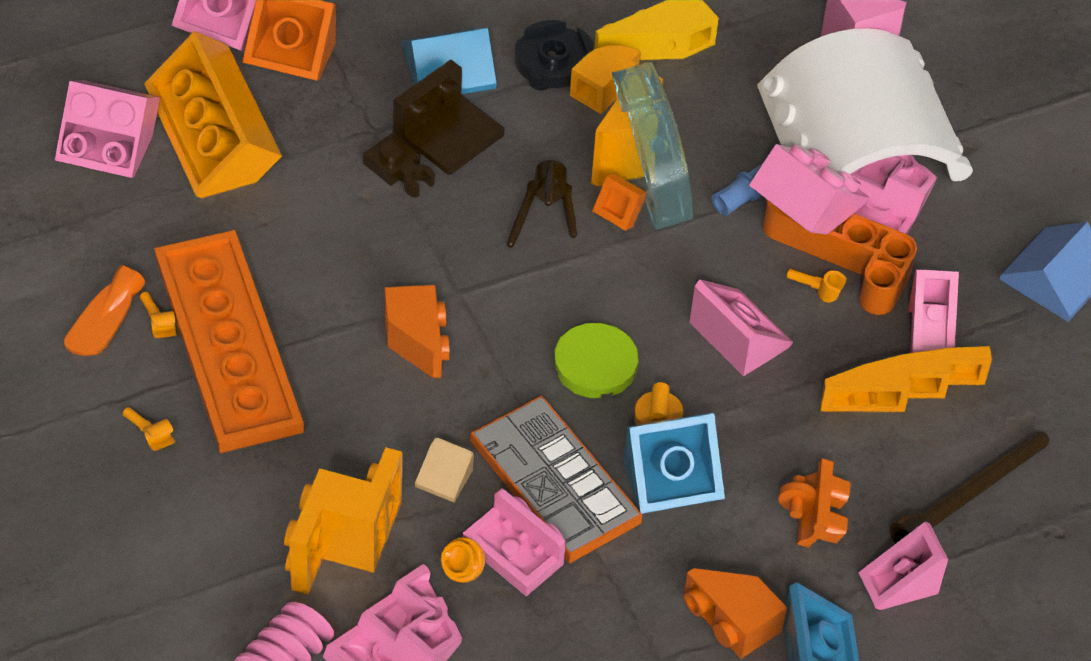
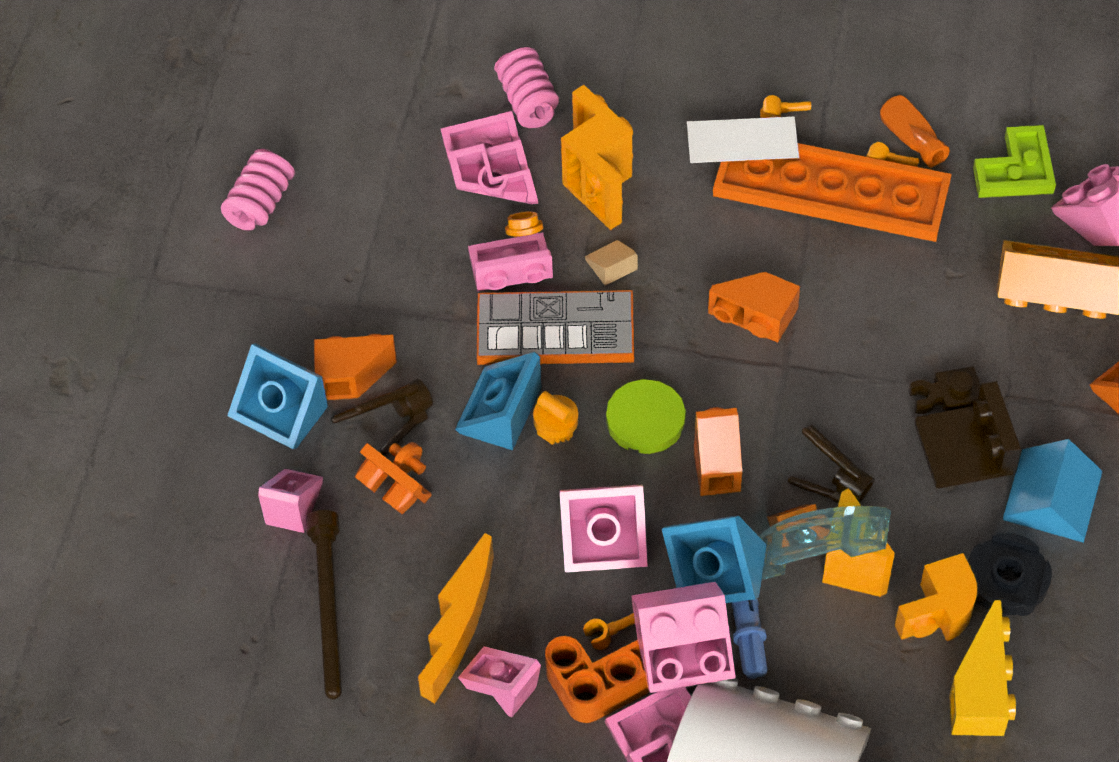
camera: 130 degrees right, 5 degrees up
(103, 202) = (1025, 169): none -> lime plate
(227, 426) = (742, 139): none -> white sticker
(604, 273) = (718, 451): none -> slope
(713, 218) = (717, 552): none -> dark azure slope
(733, 539) = (407, 401): none -> dark brown plant

